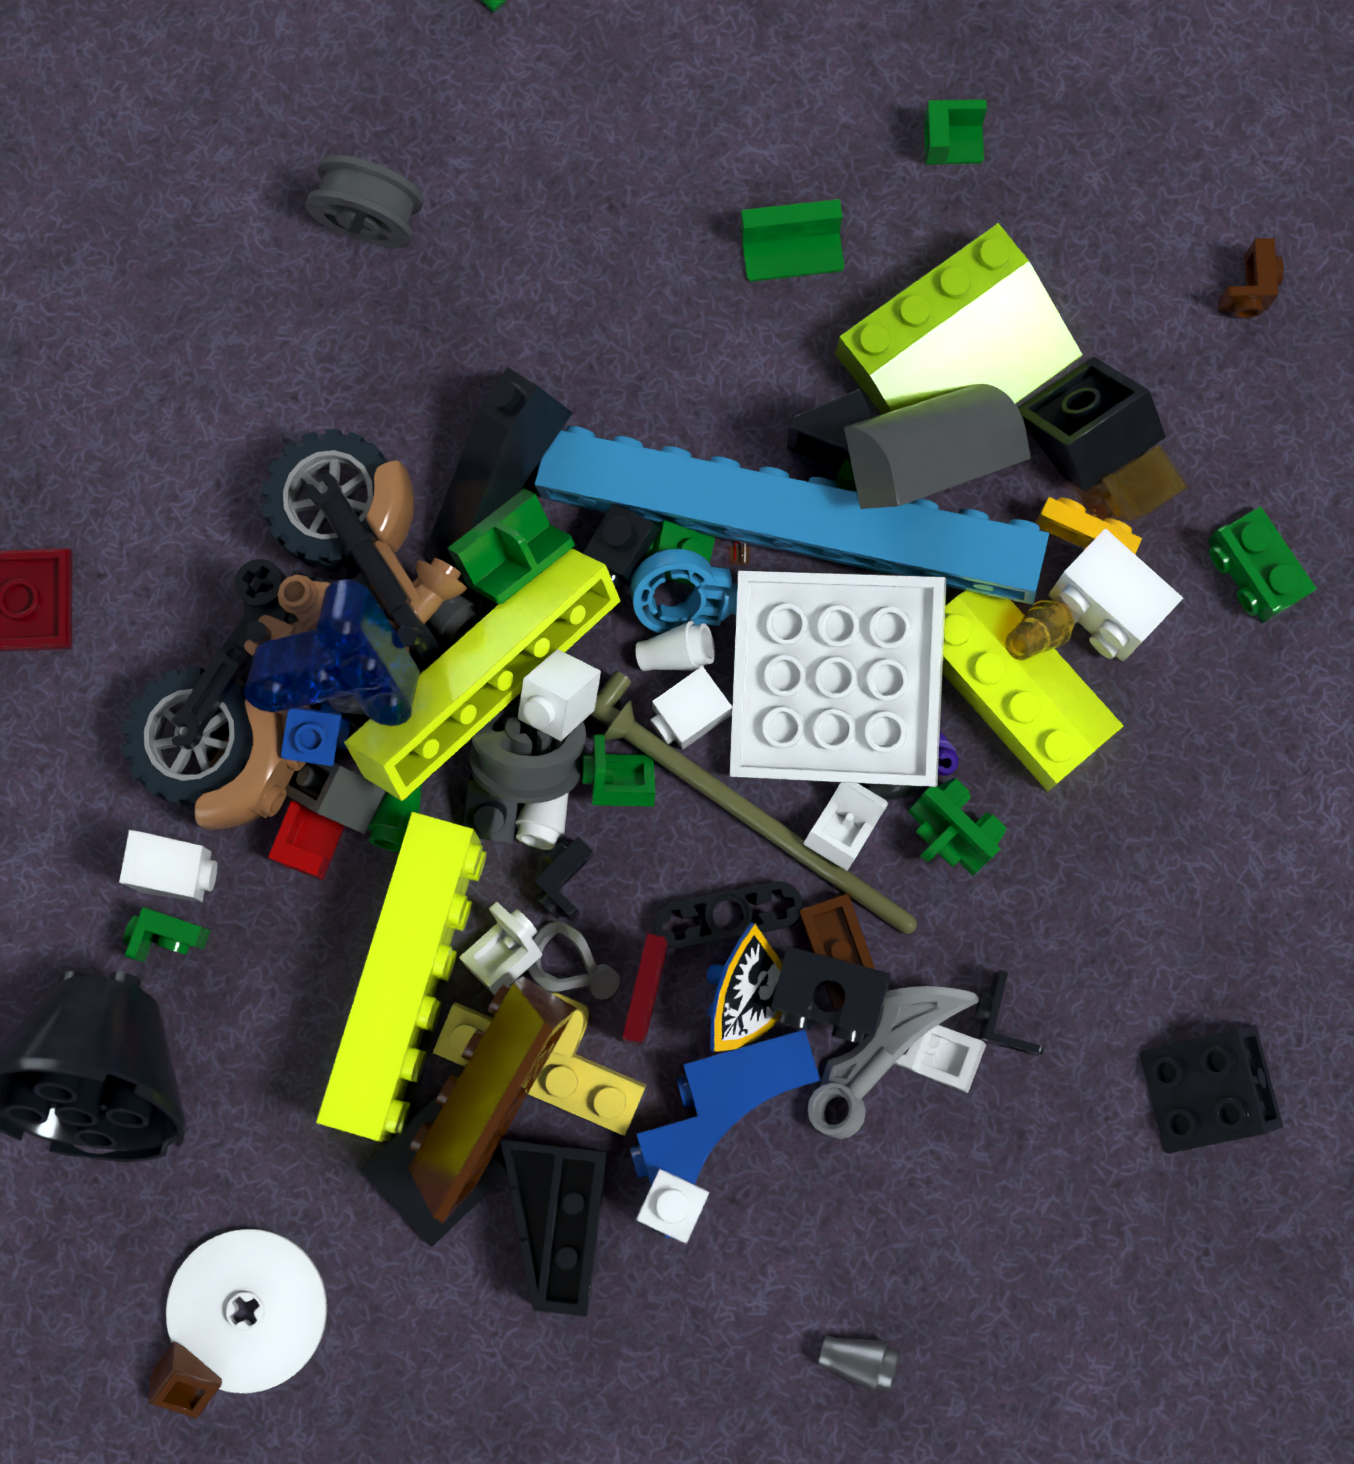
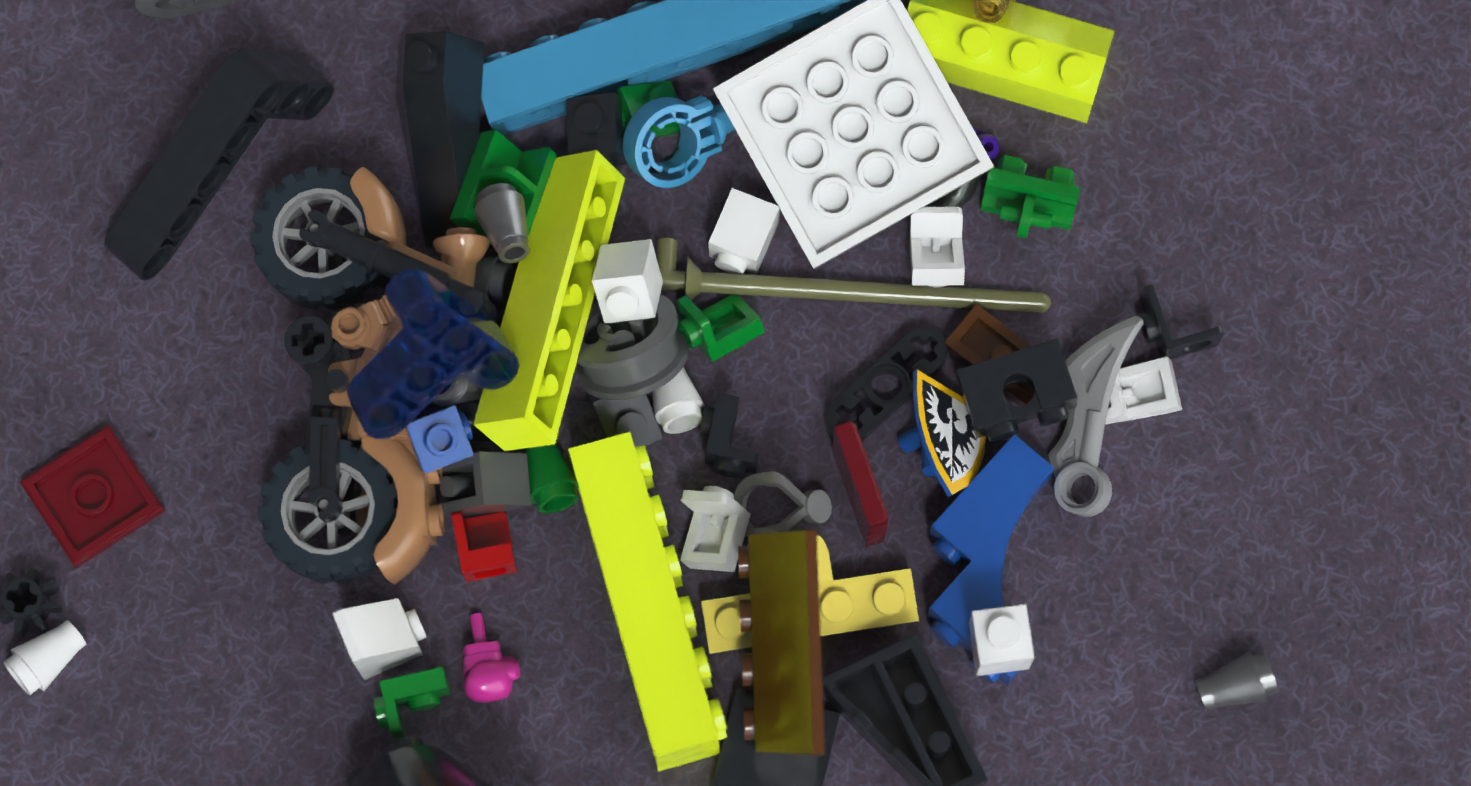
camera: 30 degrees left, 5 degrees down
(243, 948) = (486, 671): none -> dark pink piece
(290, 361) = (206, 149): none -> black beam
(486, 579) = (503, 219): none -> flat silver cone
(678, 649) = (700, 189): white cone -> none
(740, 553) = (699, 84): clear orange piece -> none
(1211, 1090) = (1378, 281): black bracket -> none

